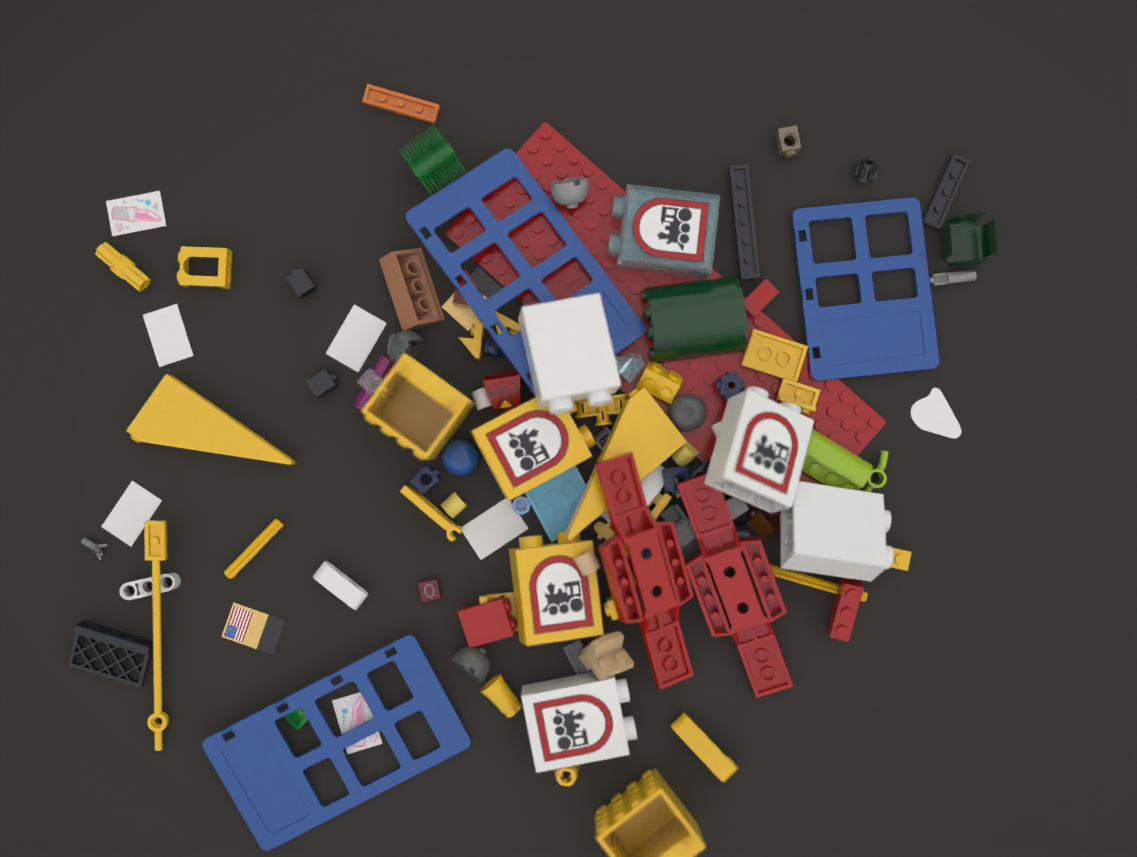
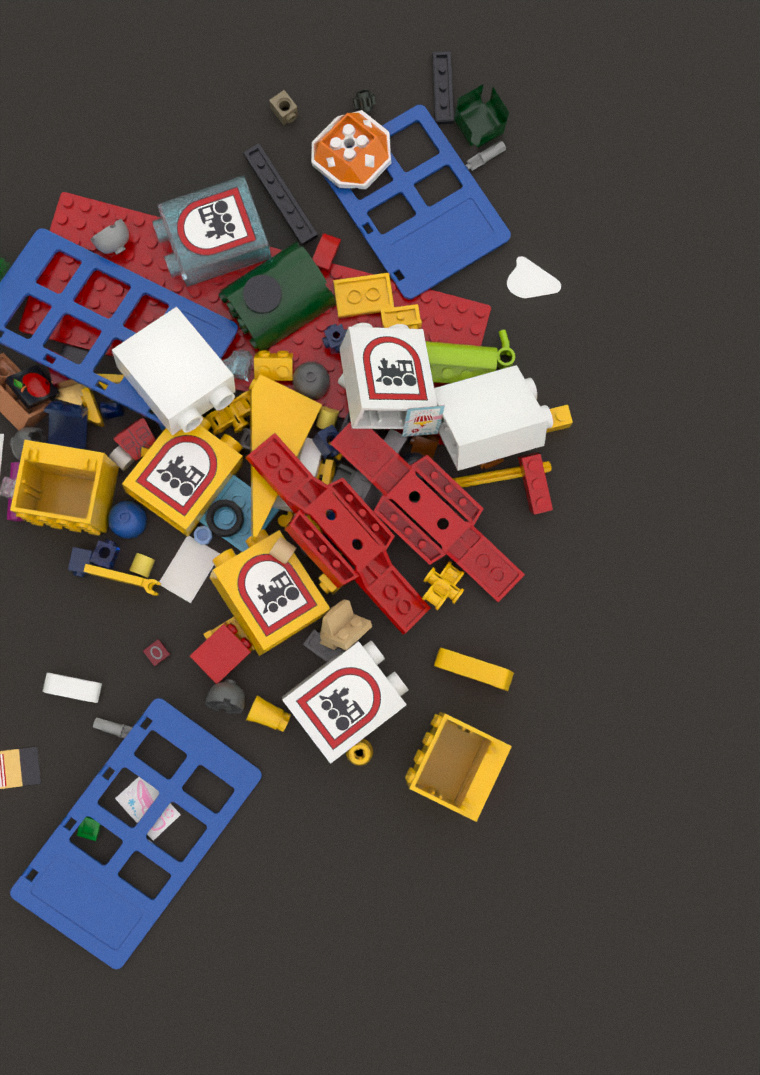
camera: 35 degrees left, 5 degrees down
(360, 639) = (111, 727): none -> light grey piece
(401, 476) = (78, 559): none -> dark blue brick
(432, 294) = (32, 386): none -> tile
(444, 350) = (67, 425): none -> dark blue panel
(548, 516) = (227, 532): none -> black tyre
(683, 317) = (262, 294): none -> black tile
(715, 660) = (443, 585): none -> yellow axle
(772, 508) = (423, 420): none -> sticker
(826, 230) = (356, 165): none -> orange piece

